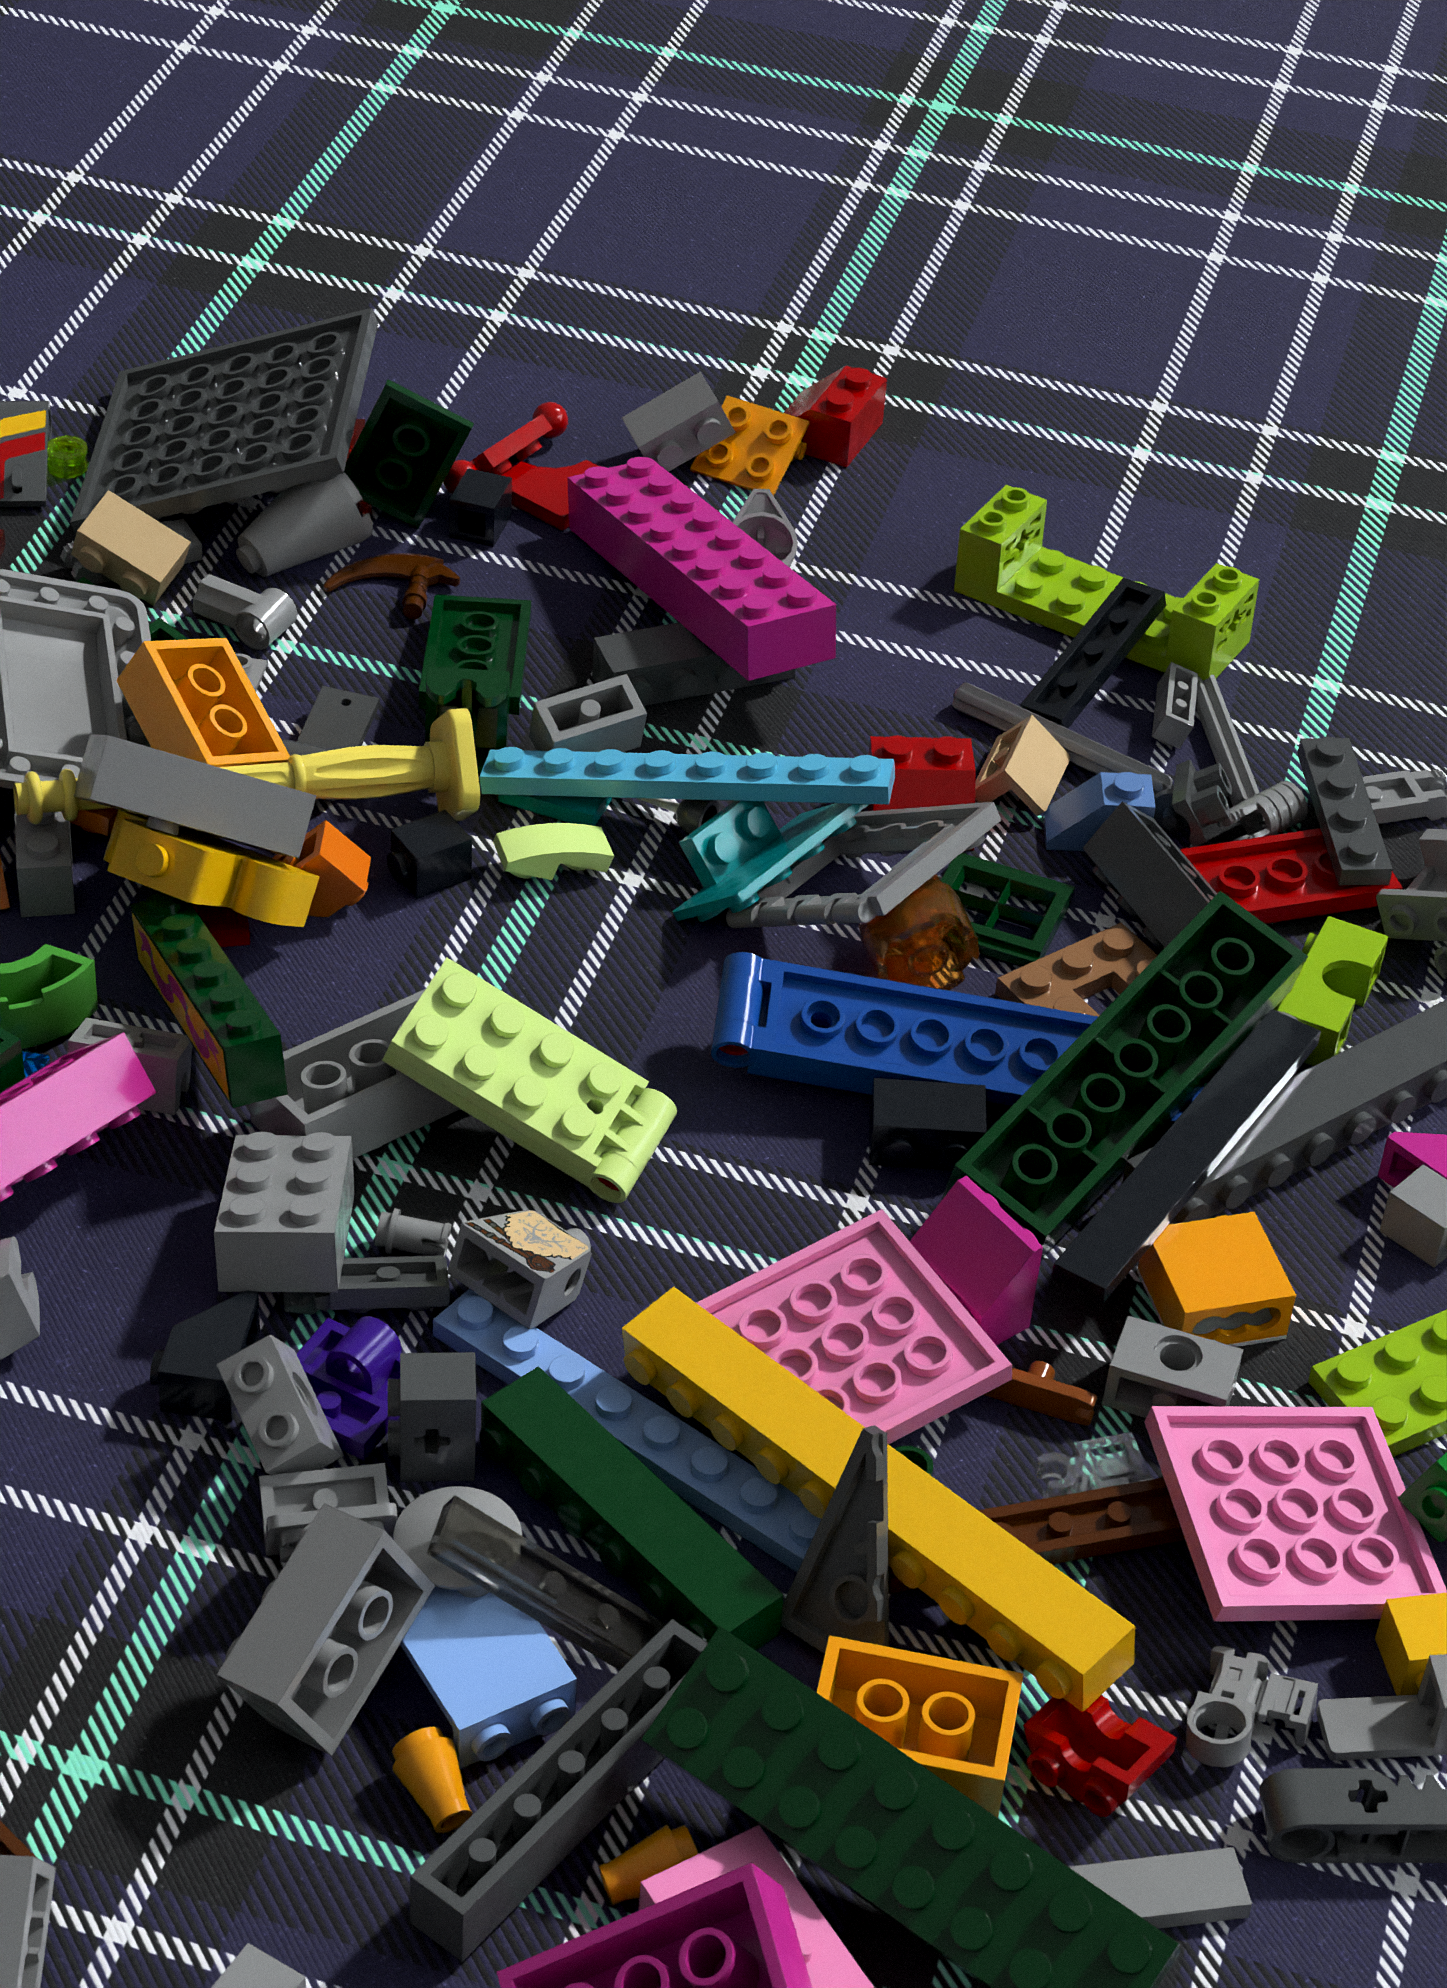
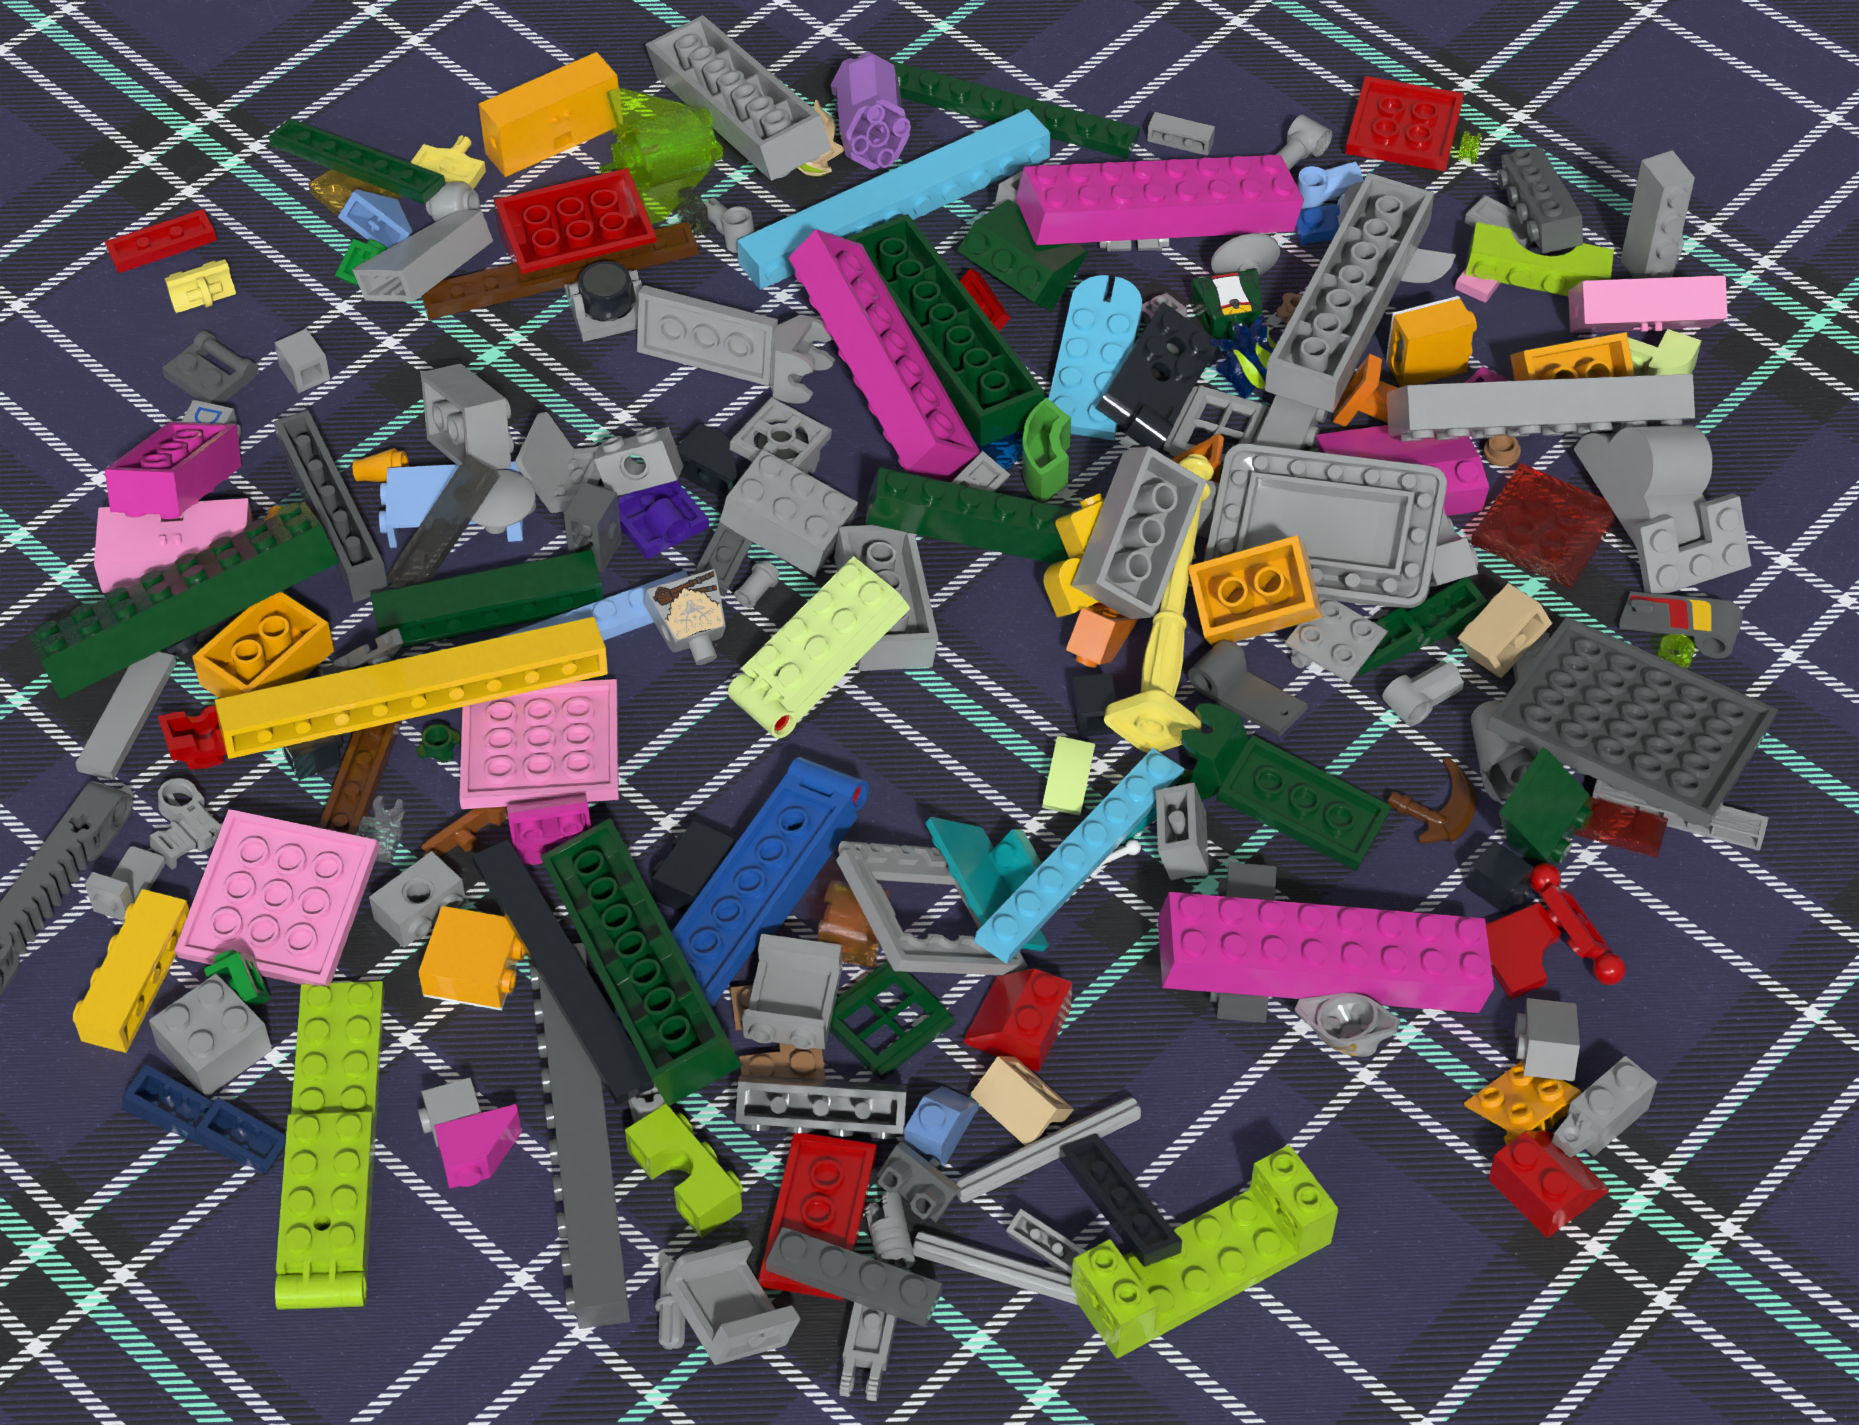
camera: 120 degrees right, 10 degrees up
(154, 1277) = (782, 438): none -> light grey piece
(736, 377) = (1605, 1109): none -> light grey hinge
(1056, 957) = (793, 992): none -> light grey panel

